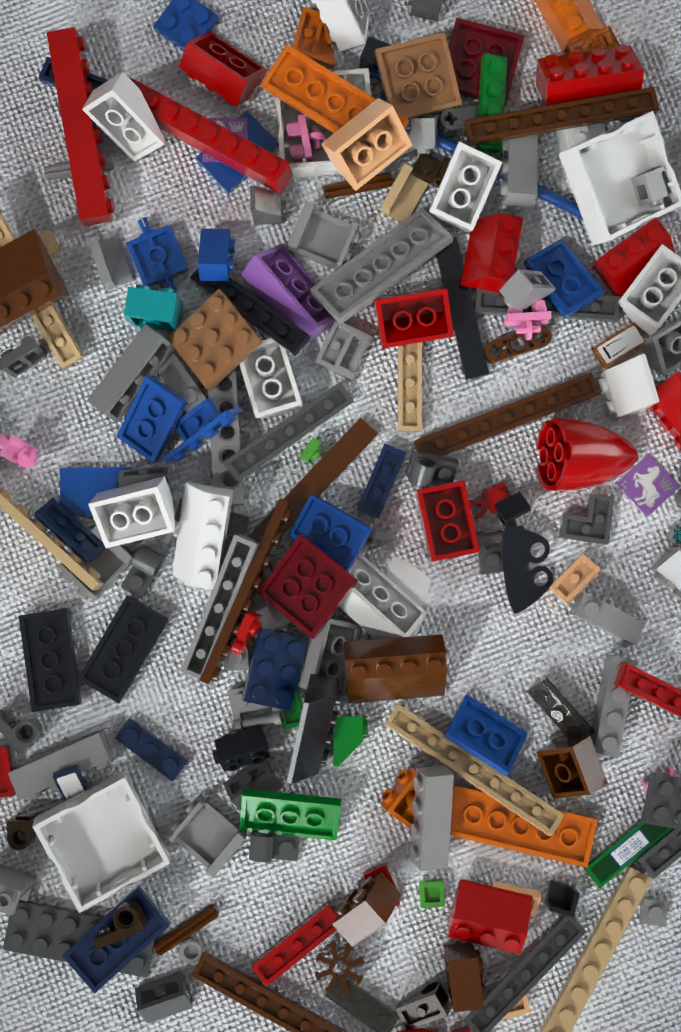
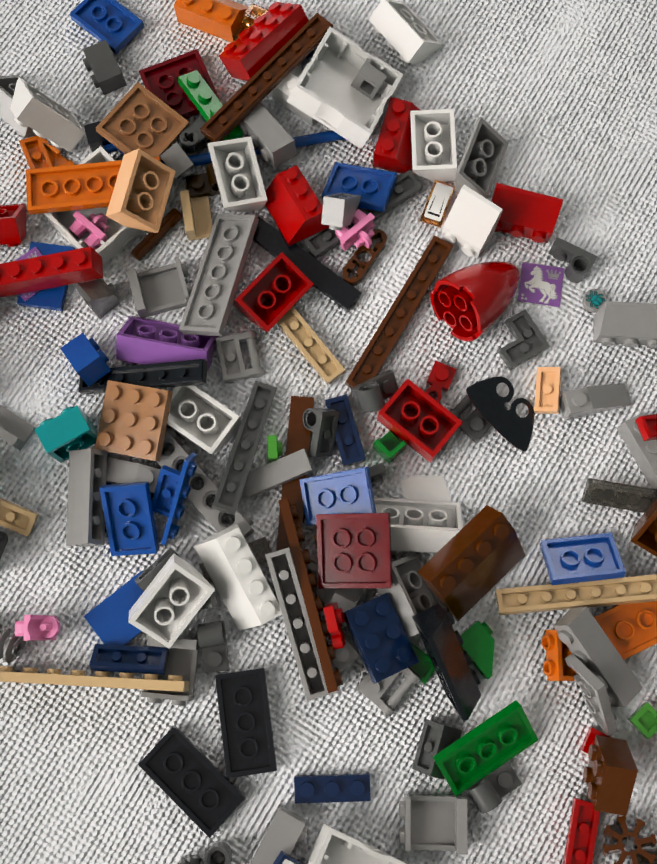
camera: 35 degrees left, 10 degrees down
(157, 255) = (39, 393): blue plate -> none
(241, 749) = (404, 726): black brick -> none
(299, 474) = (278, 473): none -> light grey tile
(365, 464) = (323, 424): none -> dark grey plate
(404, 843) = (595, 695): none -> light grey wing
(406, 523) = (389, 447): none -> green panel
(512, 508) = (458, 374): black panel -> none

